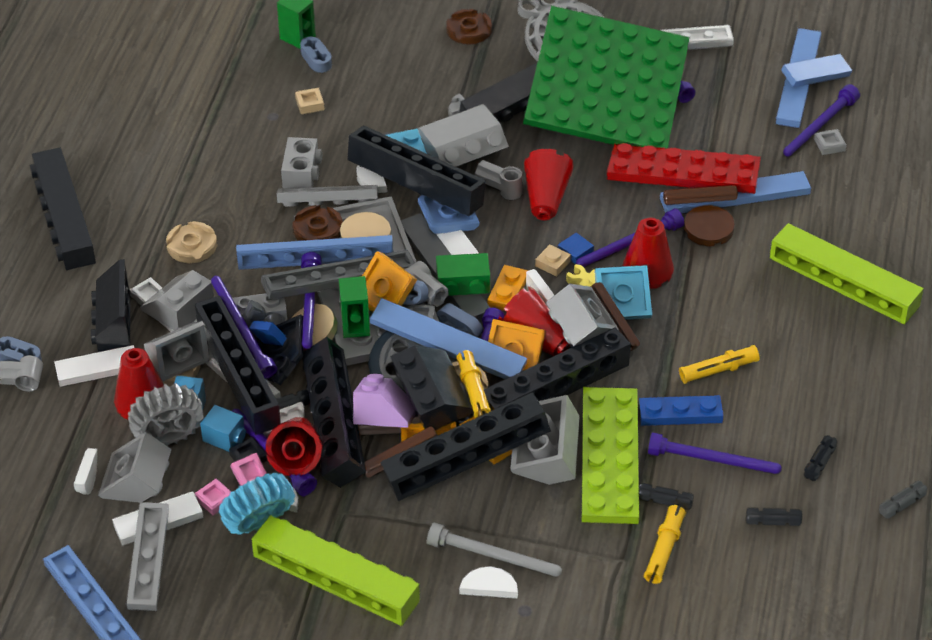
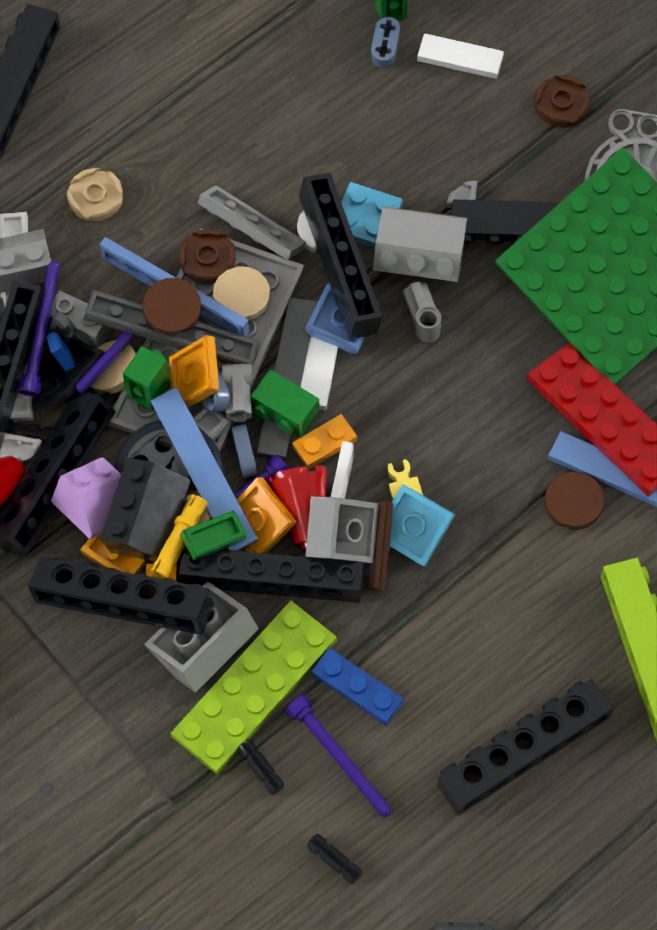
camera: 40 degrees right, 20 degrees up
(300, 163) = (252, 166): light grey brick -> none
(309, 101) = (329, 97): tan plate -> none
(330, 254) = (172, 306): none -> reddish brown tile
(374, 466) = (71, 554): reddish brown axle -> none
(375, 37) = (460, 56): none -> white tile
(440, 536) = (36, 664): light grey piece -> none
(489, 582) = (38, 740): white tile -> none
(498, 367) = (213, 535): none -> green tile
(546, 181) = (454, 350): red cone -> none
(553, 260) = (393, 438): tan plate -> none
(576, 246) = (425, 439): blue tile -> none
(651, 249) = (474, 504): red cone -> none
(668, 535) = (214, 815): yellow pin -> none
(672, 221) = (539, 471): dark purple piece -> none
(700, 195) = (590, 463): reddish brown axle -> none
(747, 356) = (435, 664): yellow pin -> none
(820, 458) = (433, 830): black axle -> none
(828, 372) = (464, 795): none -> black brick

